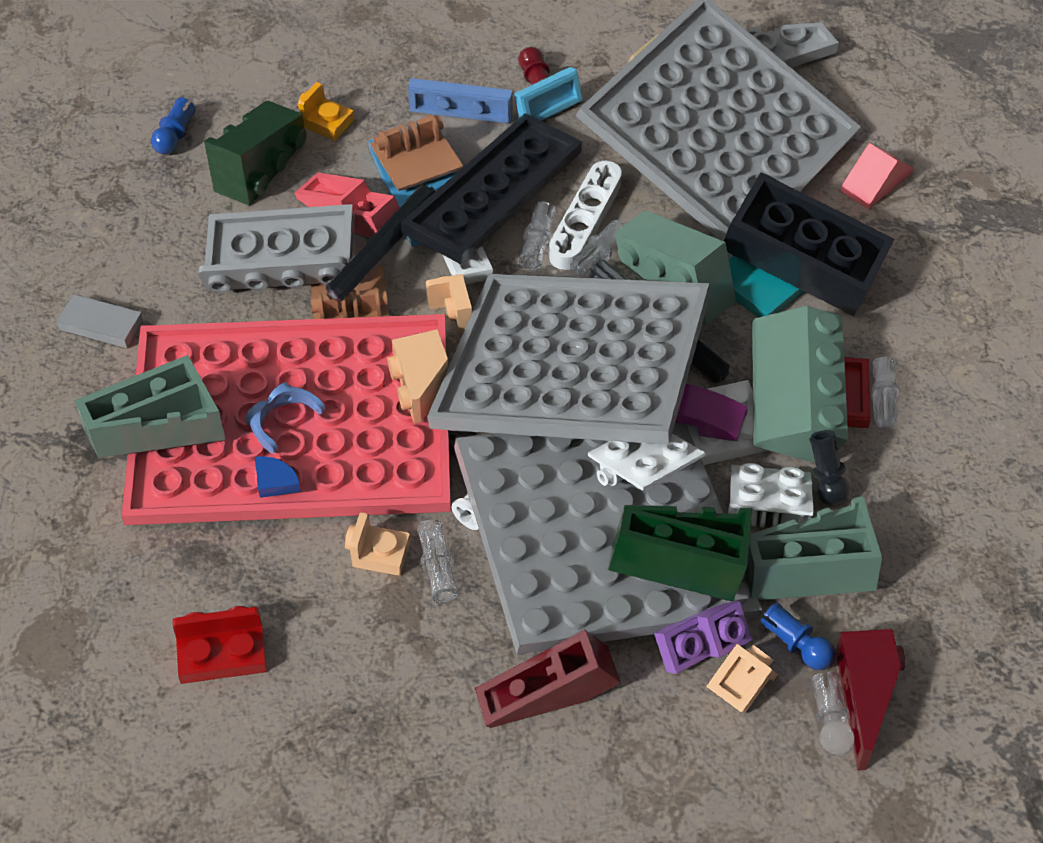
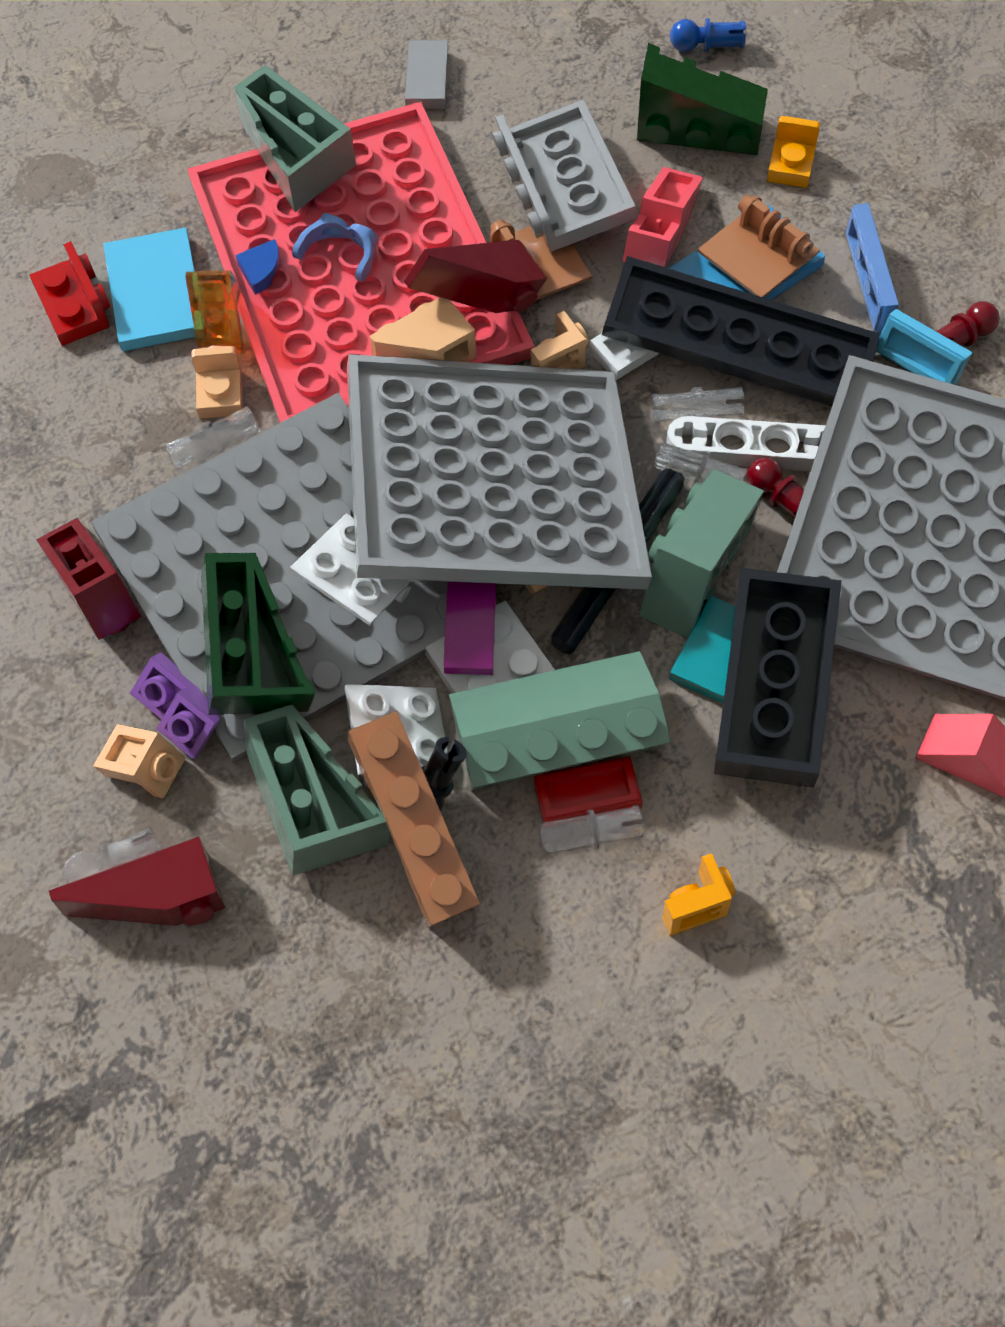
camera: 75 degrees right, 10 degrees up
(241, 572) = (150, 288): none -> medium azure tile
(313, 518) = (215, 308): none -> clear orange slope
(375, 247) = (589, 249): black axle -> none
(384, 309) = (480, 275): none -> dark red slope
(651, 201) = (768, 476): none -> dark red pin
(816, 652) = (205, 803): blue pin -> none
(824, 476) = (412, 818): none -> nougat arch
(958, 342) = (697, 906): none -> light orange bracket

